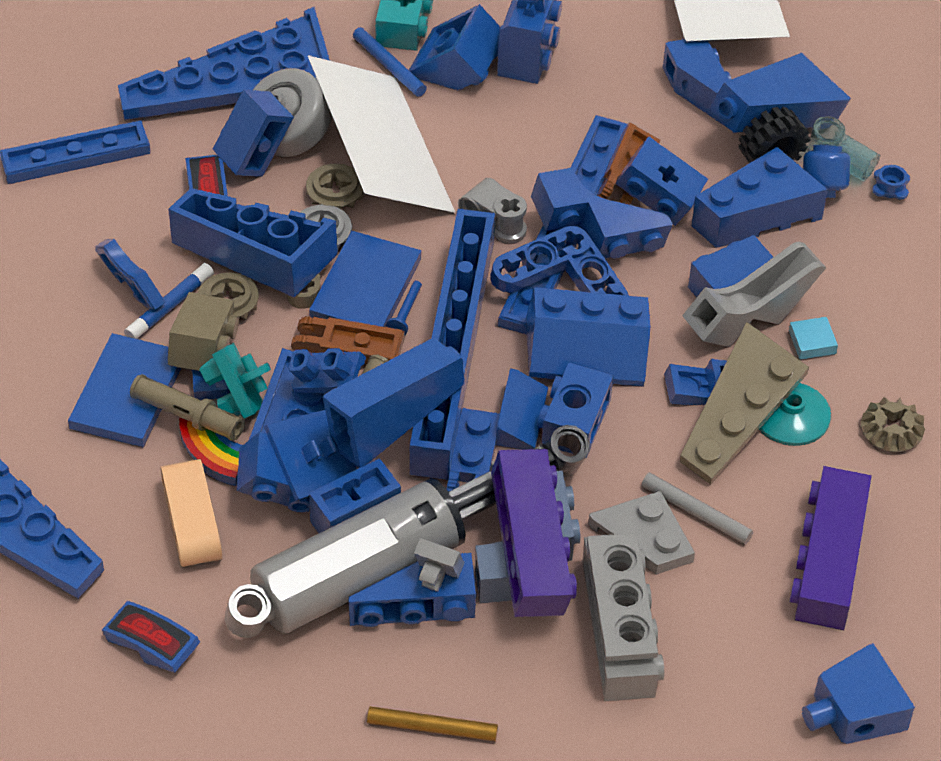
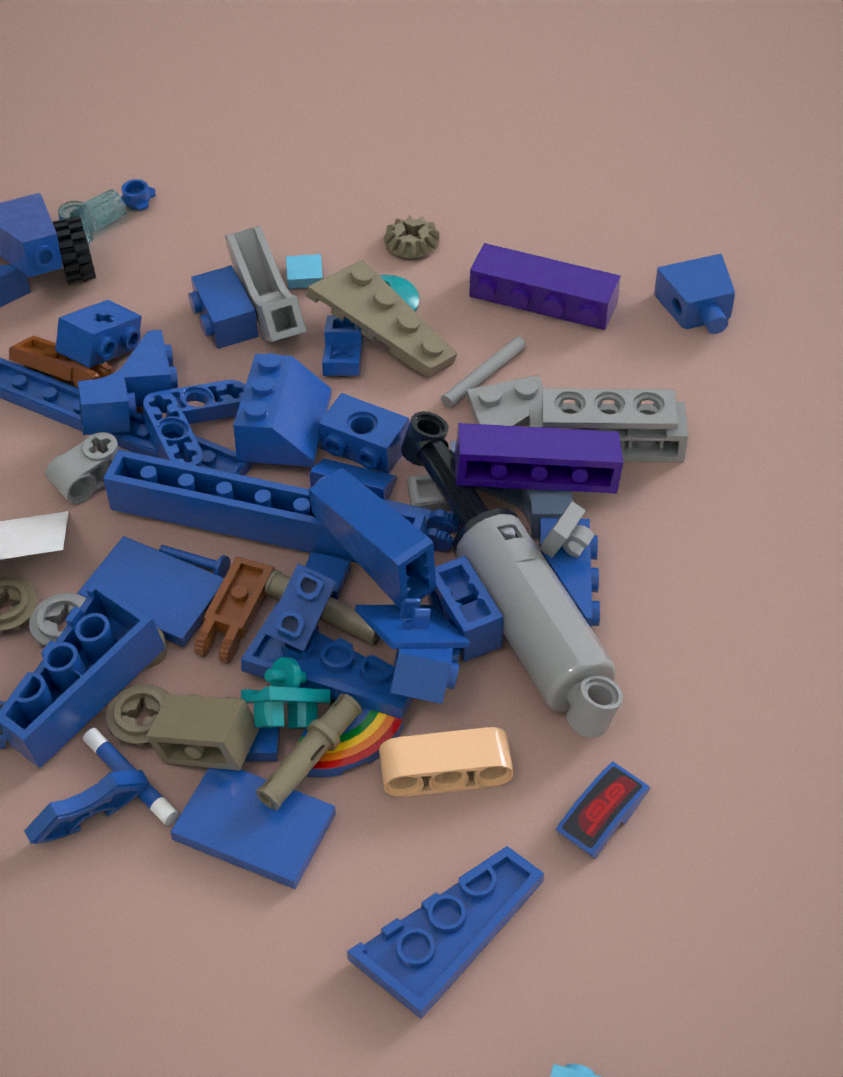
camera: 80 degrees left, 0 degrees up
(432, 723) = (711, 583): pearl gold bar -> none
(758, 198) = (134, 274): blue wedge -> none
(829, 167) = (118, 225): blue head -> none

